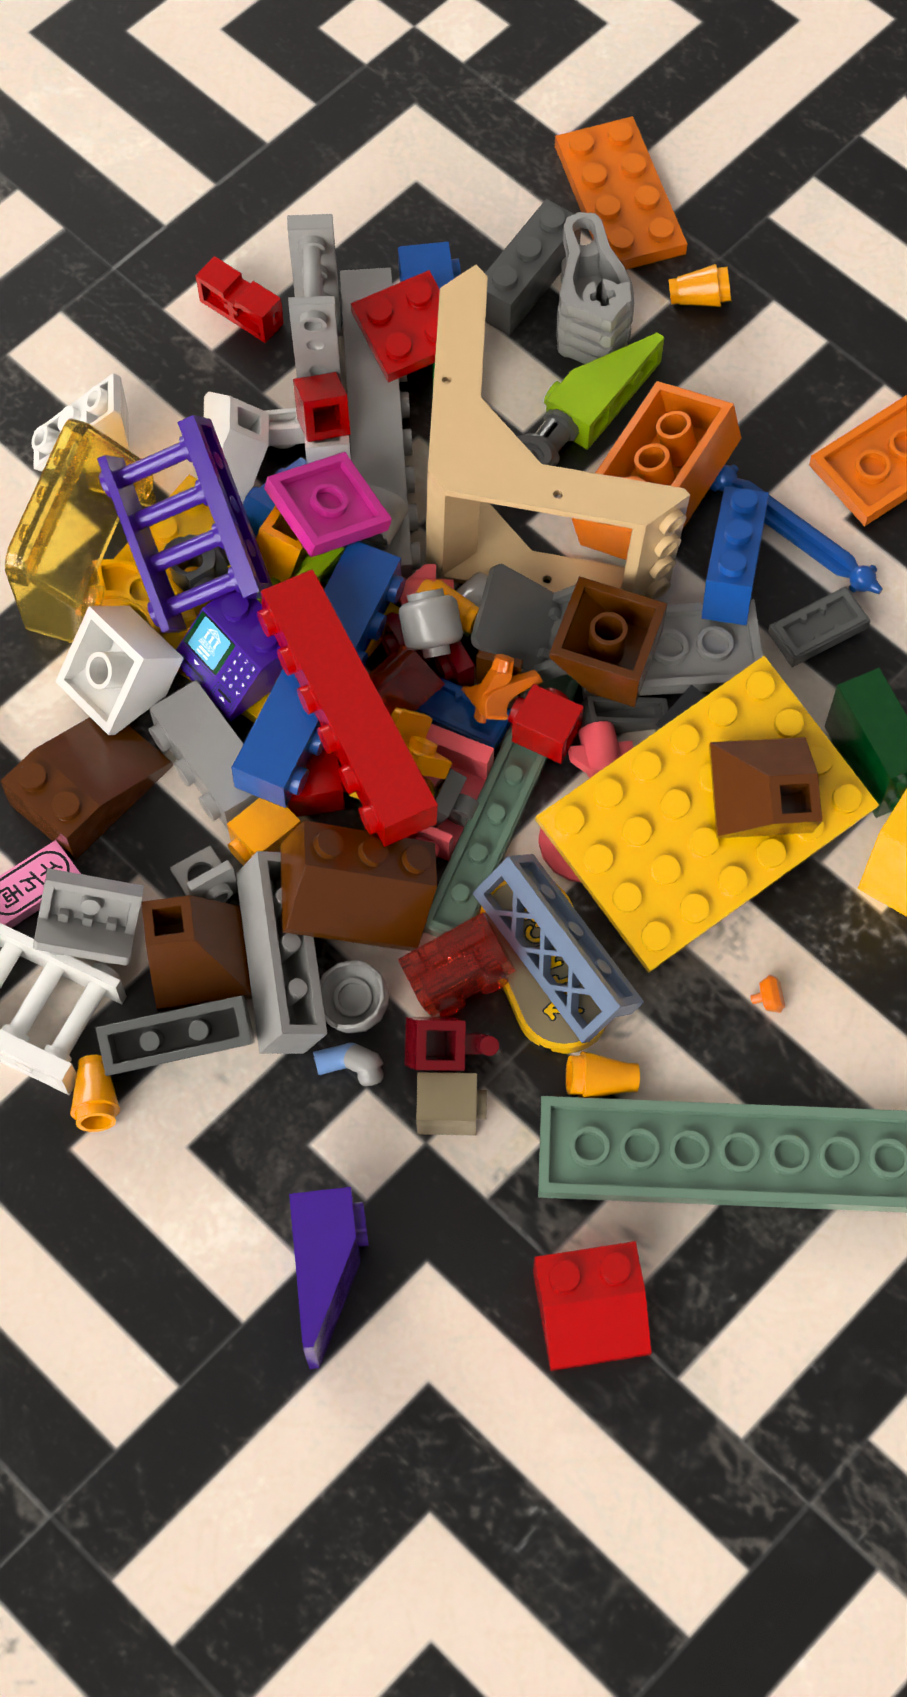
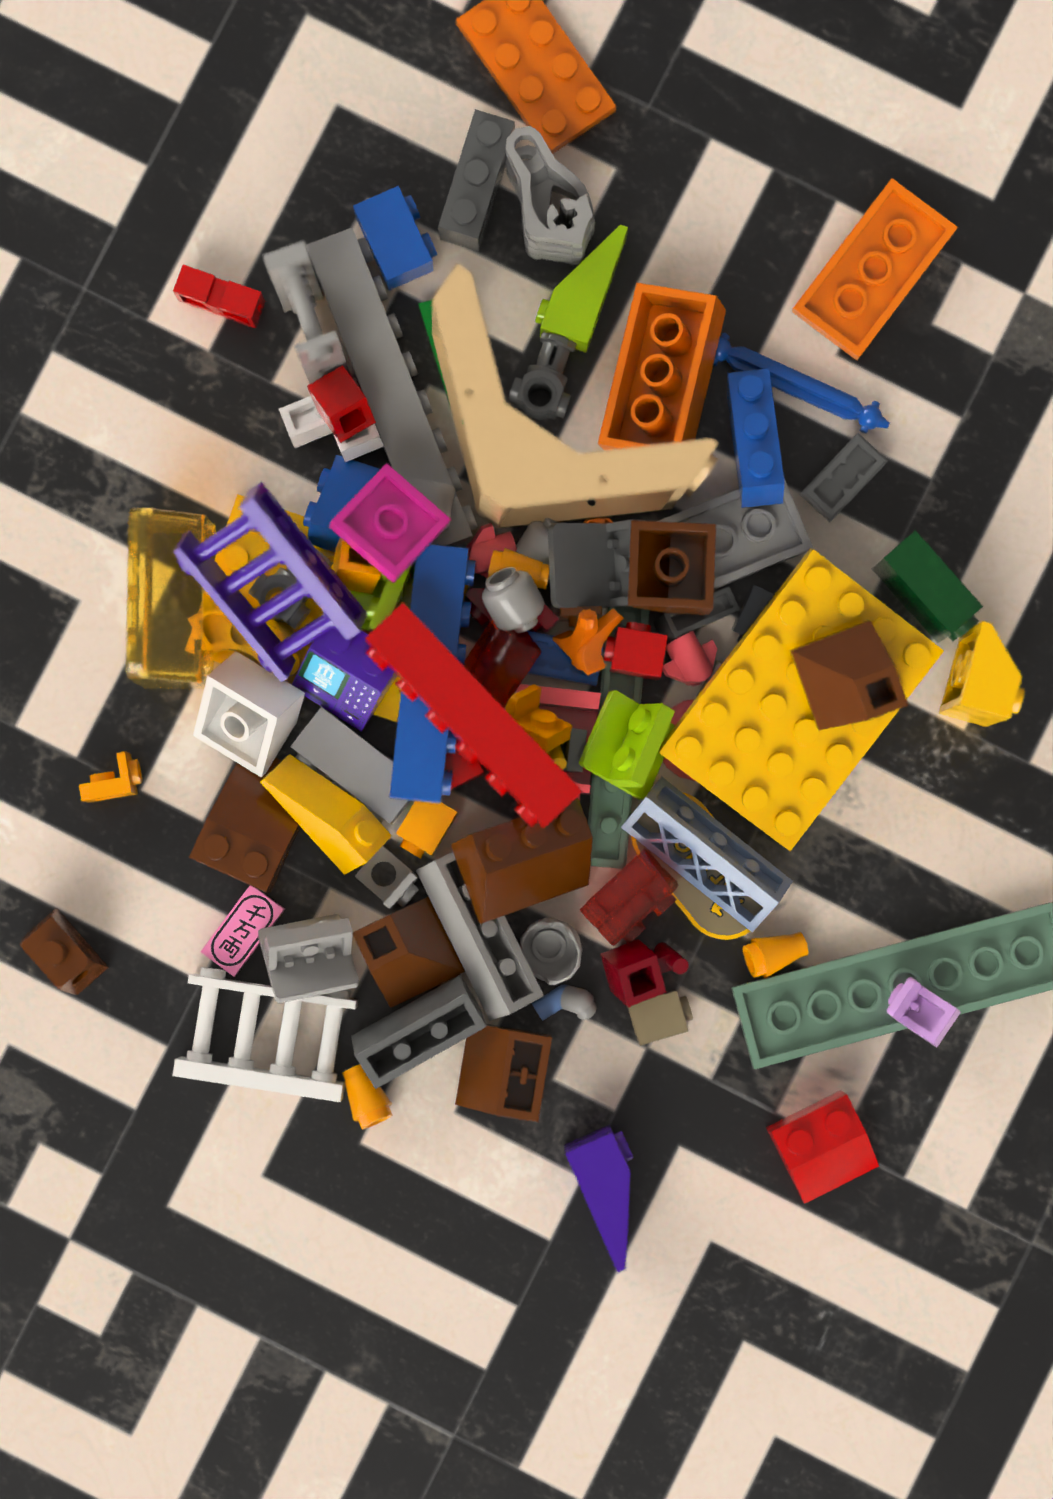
camera: 20 degrees left, 20 degrees up
(101, 406) = (130, 483): white slope -> none
(164, 788) = (327, 814): none -> yellow slope
(242, 436) = (270, 453): white slope -> none
(259, 1108) = (504, 1072): none -> reddish brown slope
(401, 324) = (390, 292): red plate -> none
(502, 805) = (627, 743): none -> lime bracket
(701, 287) = (643, 151): light orange cone -> none
(748, 1175) = (921, 1011): none -> lavender bracket
(770, 995) = (892, 836): orange rock -> none

